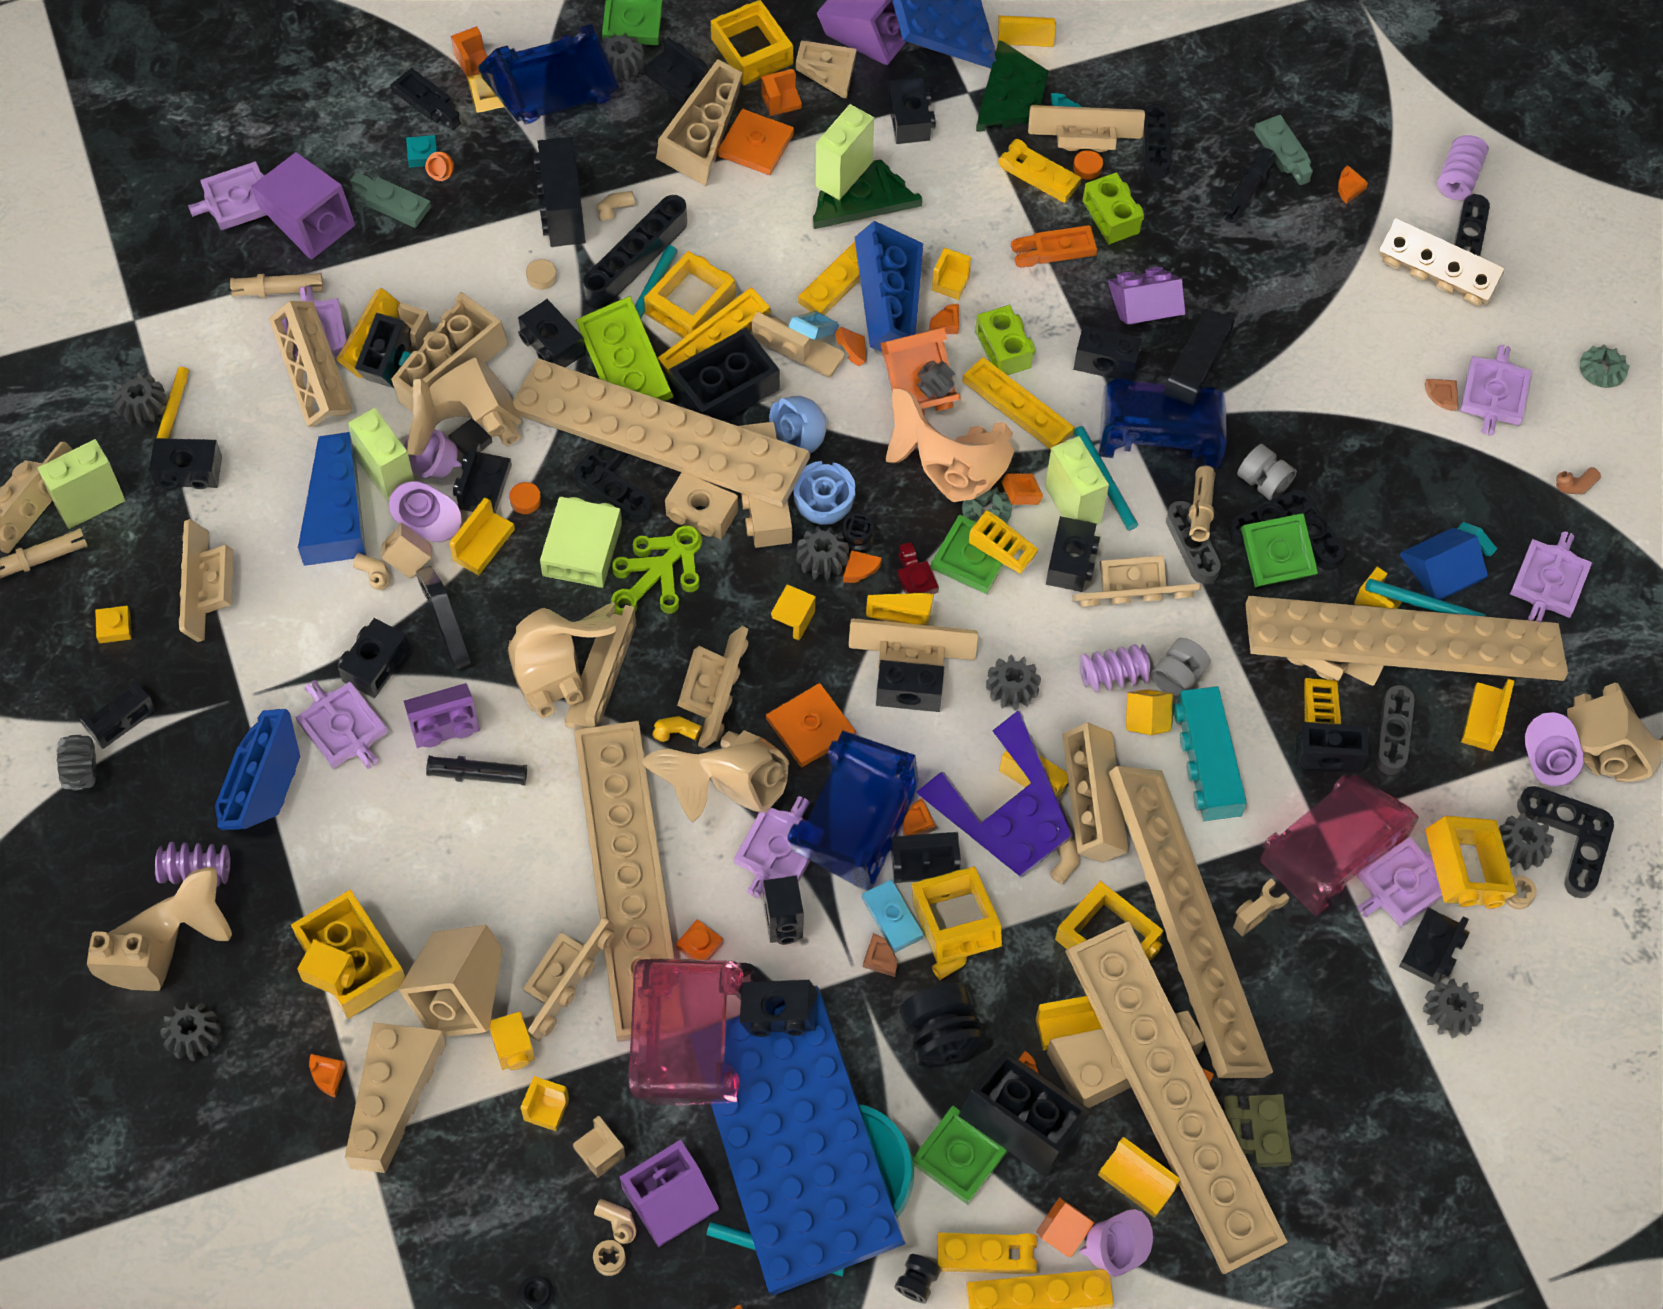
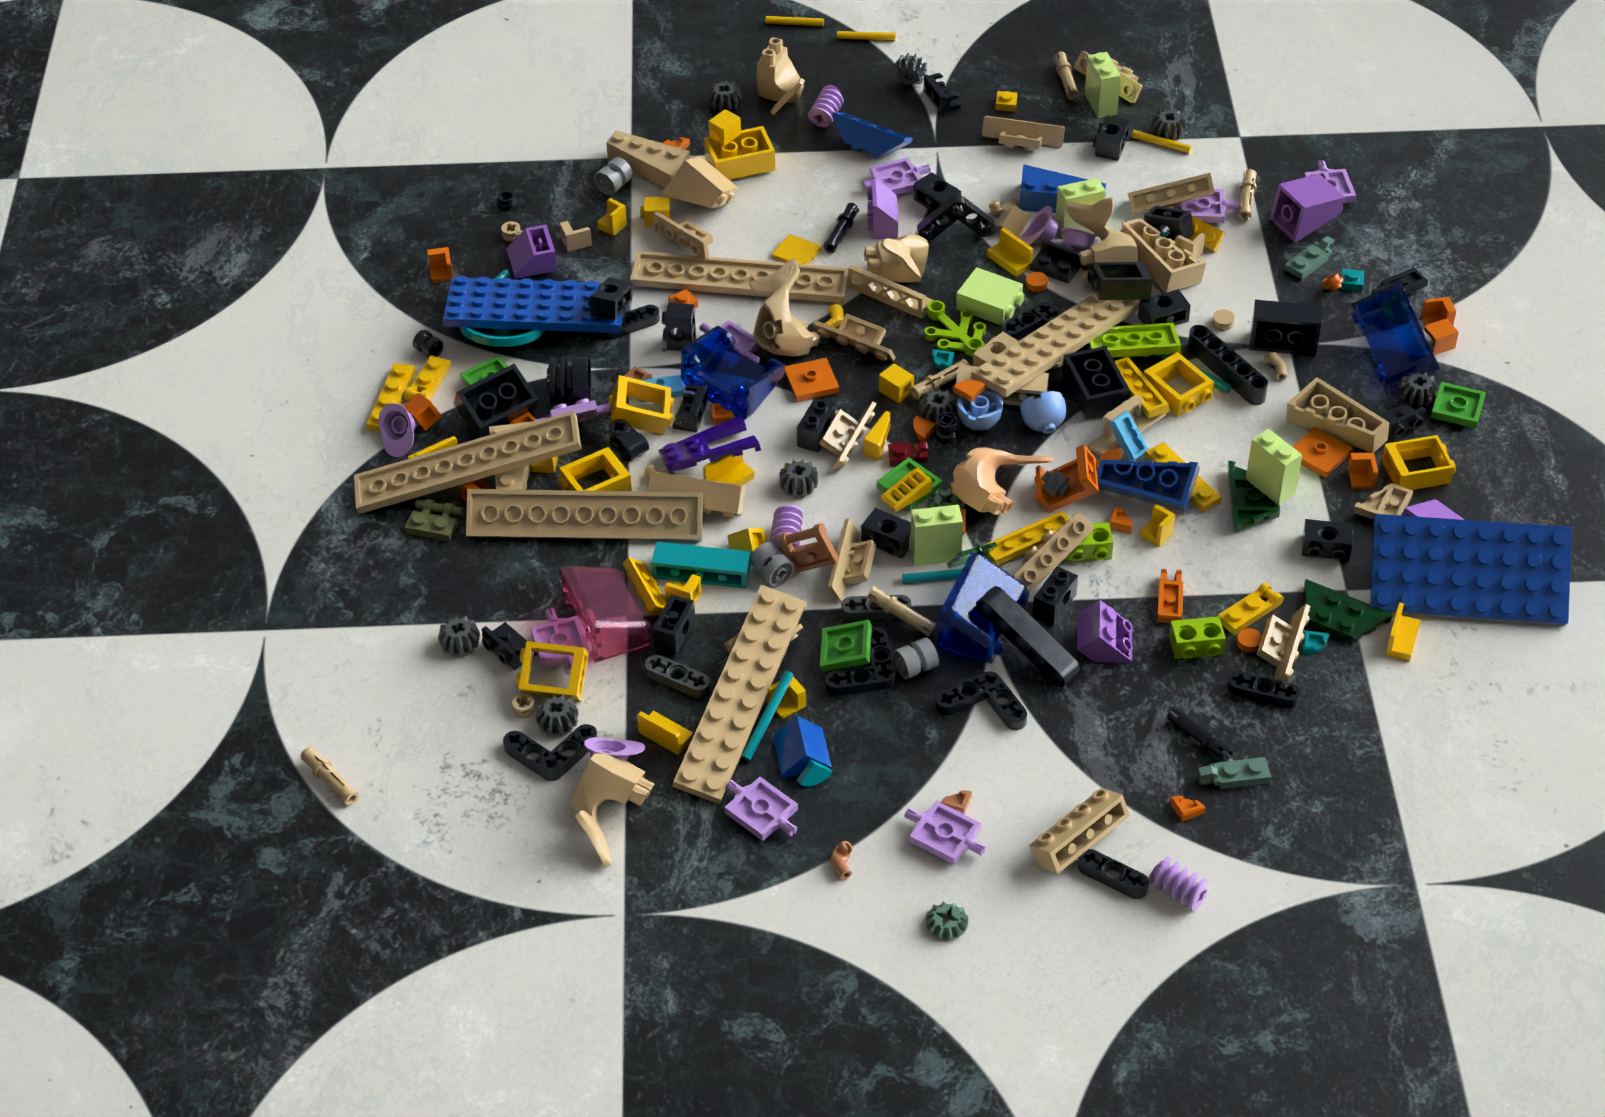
camera: 110 degrees right, 15 degrees down
(444, 1133) = (613, 176): none -> light grey wheel
(515, 37) = (1443, 336): none -> orange panel
(520, 356) = (1120, 280): none -> black window
(538, 822) = (797, 248): none -> yellow piece
(681, 1031) = (637, 253): clear pink windscreen -> none
(718, 575) = (942, 359): none -> teal tile
(757, 562) = (937, 380): none -> tan pin
(813, 499) = (969, 389): none -> orange tile
(1011, 999) = (584, 410): none -> lavender plate
(1021, 916) = (627, 440): none -> black piece
(1044, 369) = (1052, 550): none -> tan bracket
(1094, 438) = (963, 556): none -> clear green piece
(1156, 628) = (809, 555): none -> nougat plate
(1253, 913) = (576, 553): tan plate -> none
(1259, 762) = (690, 590): none -> yellow panel
(1274, 806) = (646, 585): none -> yellow plate
(1276, 395) = (988, 693): none -> black beam
(1309, 703) = (704, 630): yellow slope -> none

